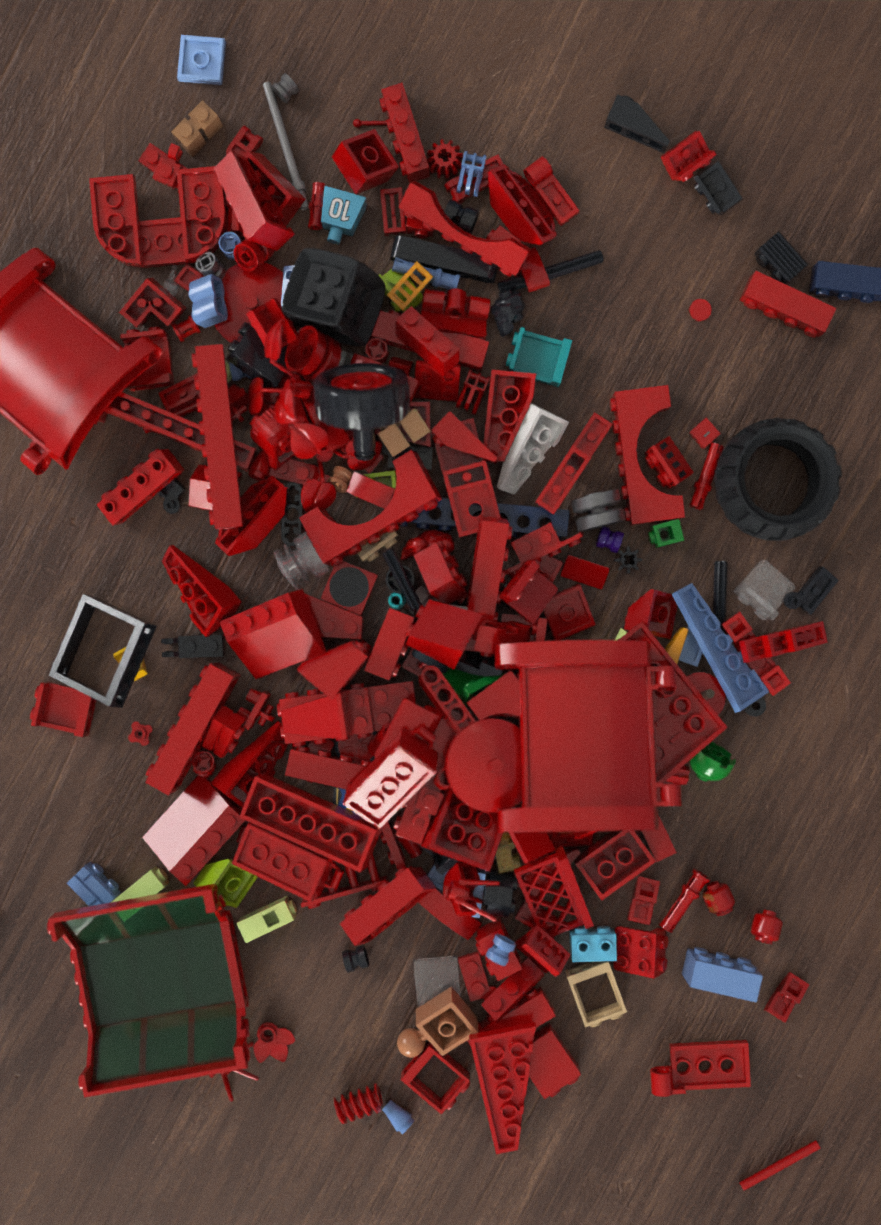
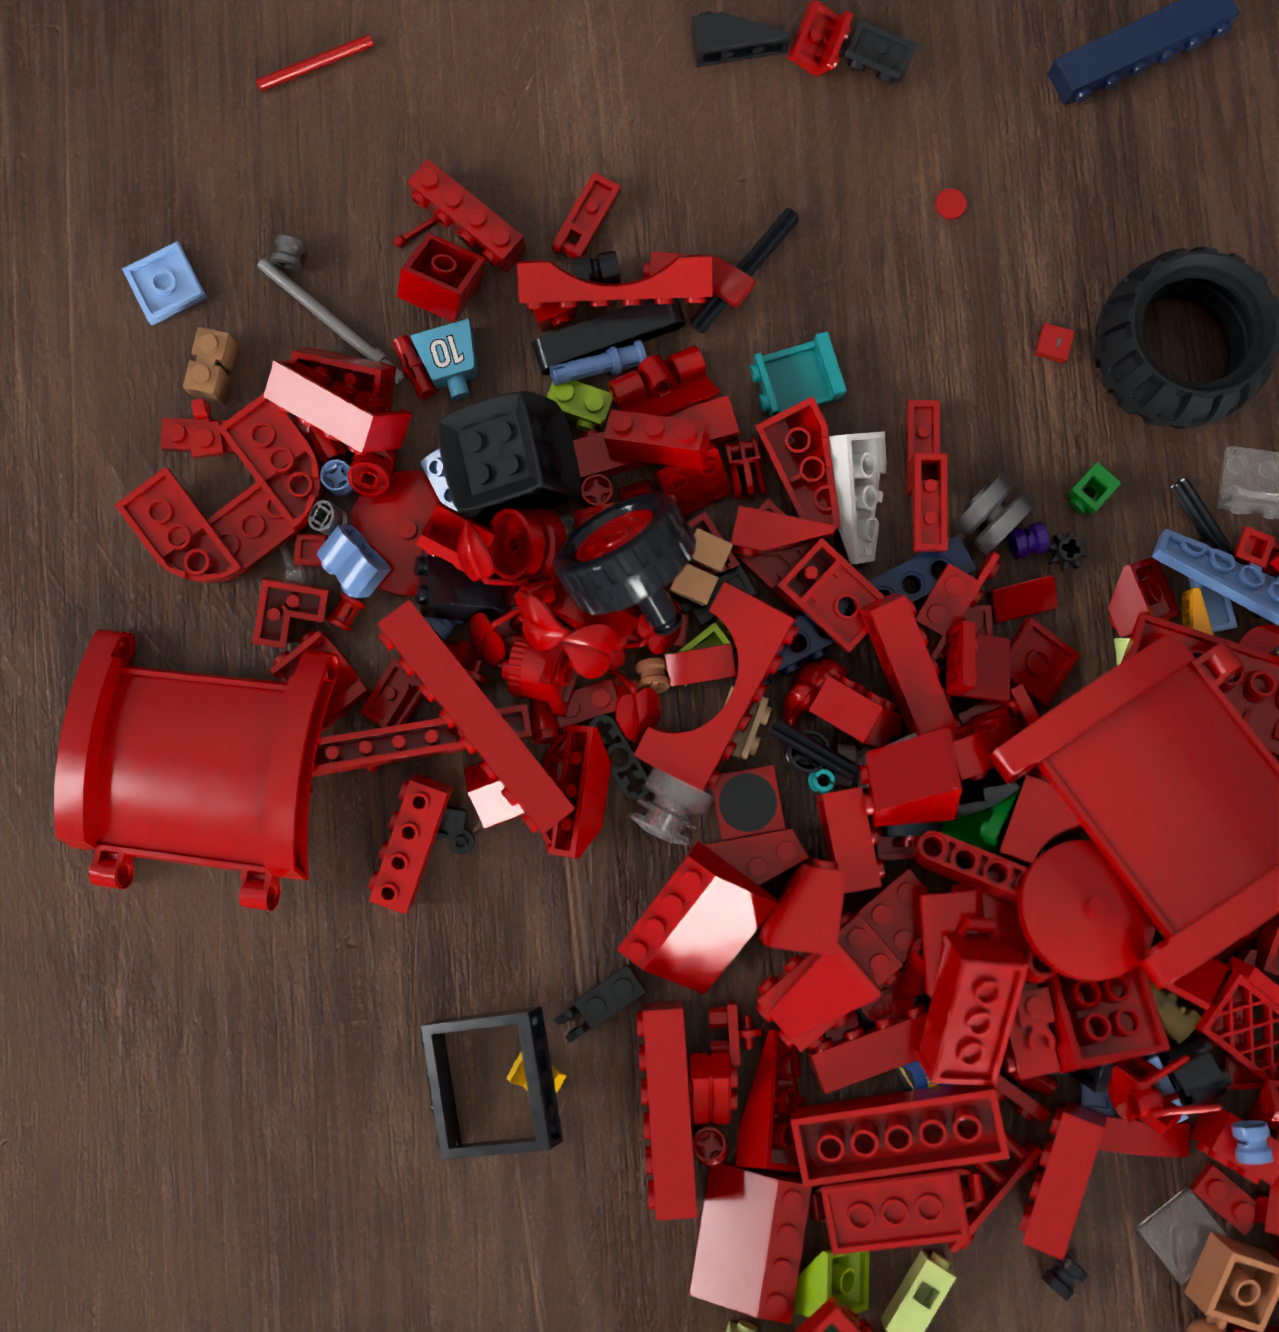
camera: 20 degrees left, 5 degrees down
(63, 709) = (484, 1192): red panel -> none
(146, 733) = (606, 1150): red plate -> none
(202, 591) = (572, 926): red wedge -> none
(245, 134) = (270, 339): red plate -> none
(395, 230) = (525, 337): red tile -> none
(427, 275) = (594, 361): light orange slope -> none
(452, 155) = (534, 207): red gear -> none
(471, 171) = (577, 210): medium blue arm -> none
(507, 310) = (725, 345): black head -> none
(520, 206) = (660, 217): red wedge -> none
(550, 190) = (683, 176): red plate -> none
(643, 501) = (953, 375): red arch -> none
(667, 463) = (1038, 405): red slope -> none
(703, 485) = (1092, 391): red pin -> none
(780, 258) = (1007, 86): black brick -> none
(787, 304) = (1051, 132): red brick -> none

